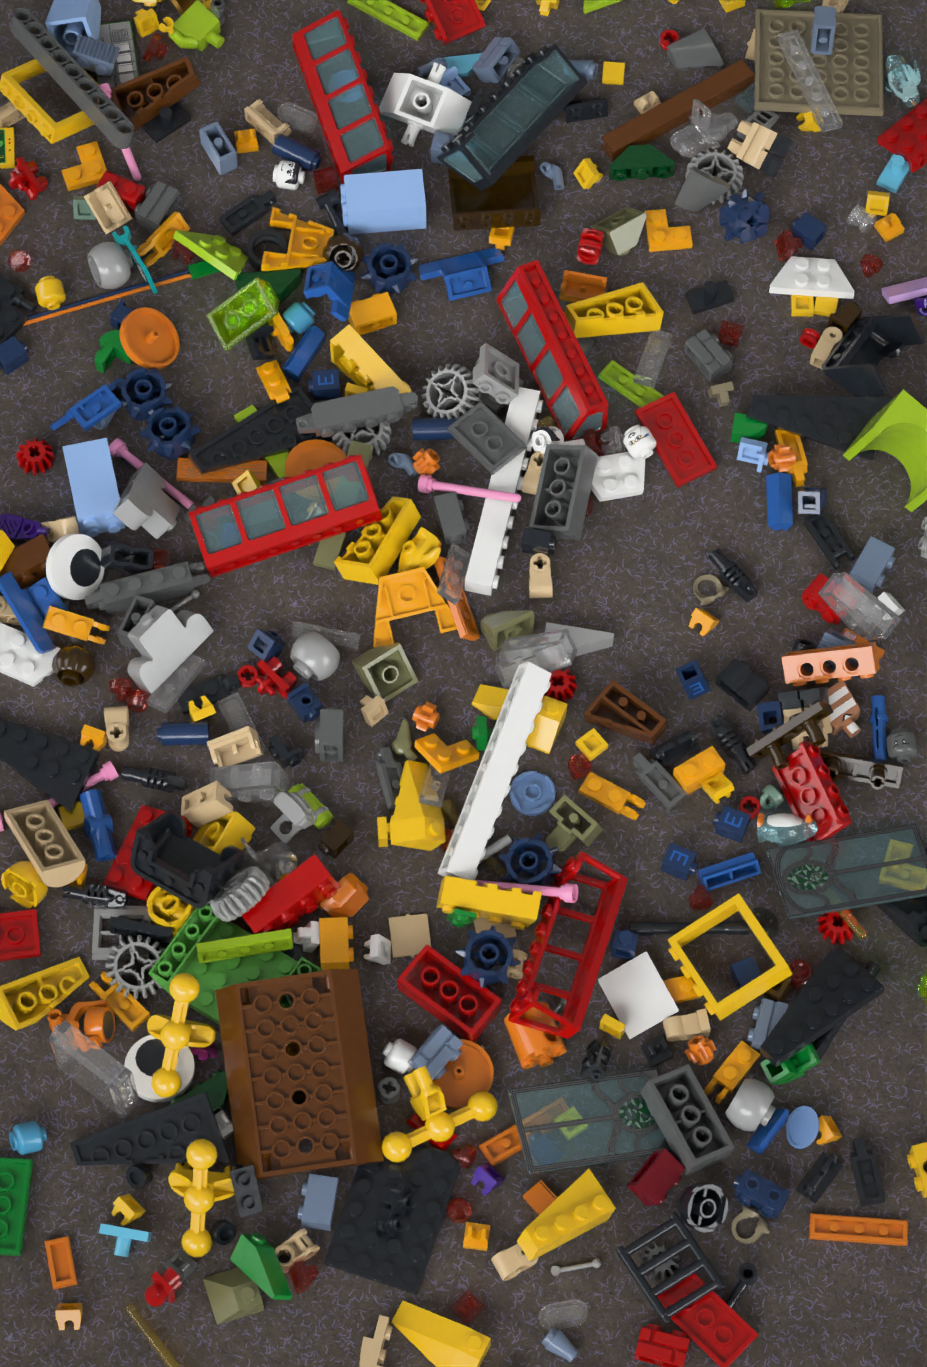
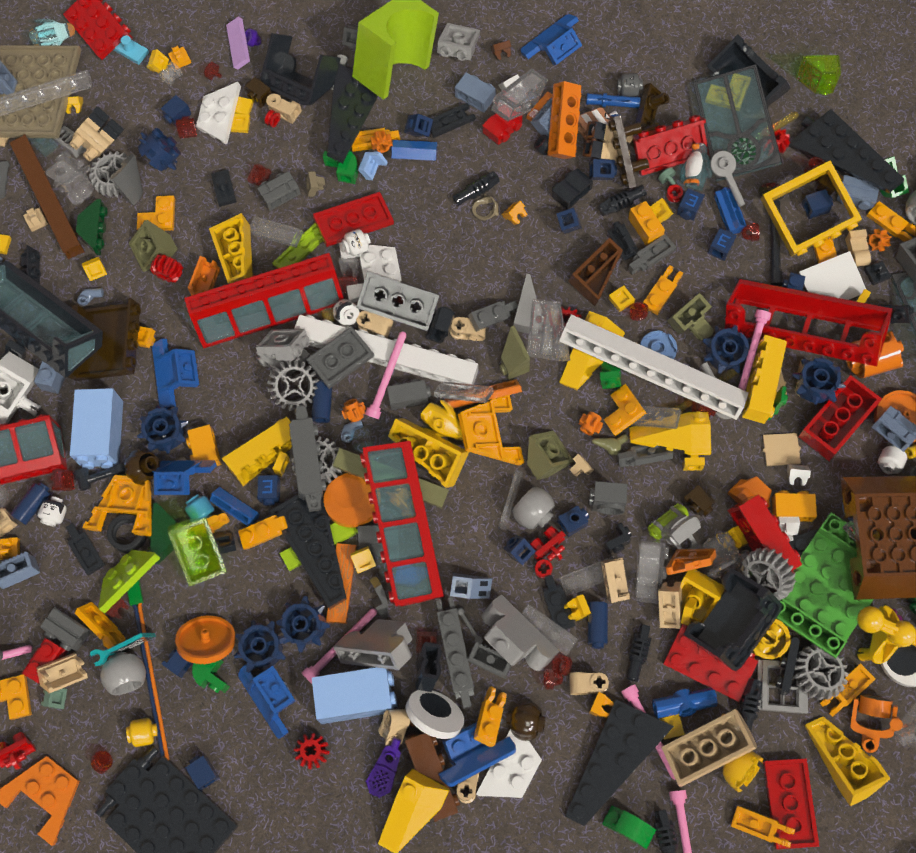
camera: 80 degrees left, 5 degrees up
(200, 823) = (689, 611): none -> yellow tile
(221, 596) = (470, 586): none -> sand blue slope
(245, 946) = (809, 575): lime tile -> none
(260, 821) = (690, 559): none -> orange wing
(557, 598) = (491, 315): none -> dark grey hinge
(781, 851) = (723, 165): none -> light grey piece

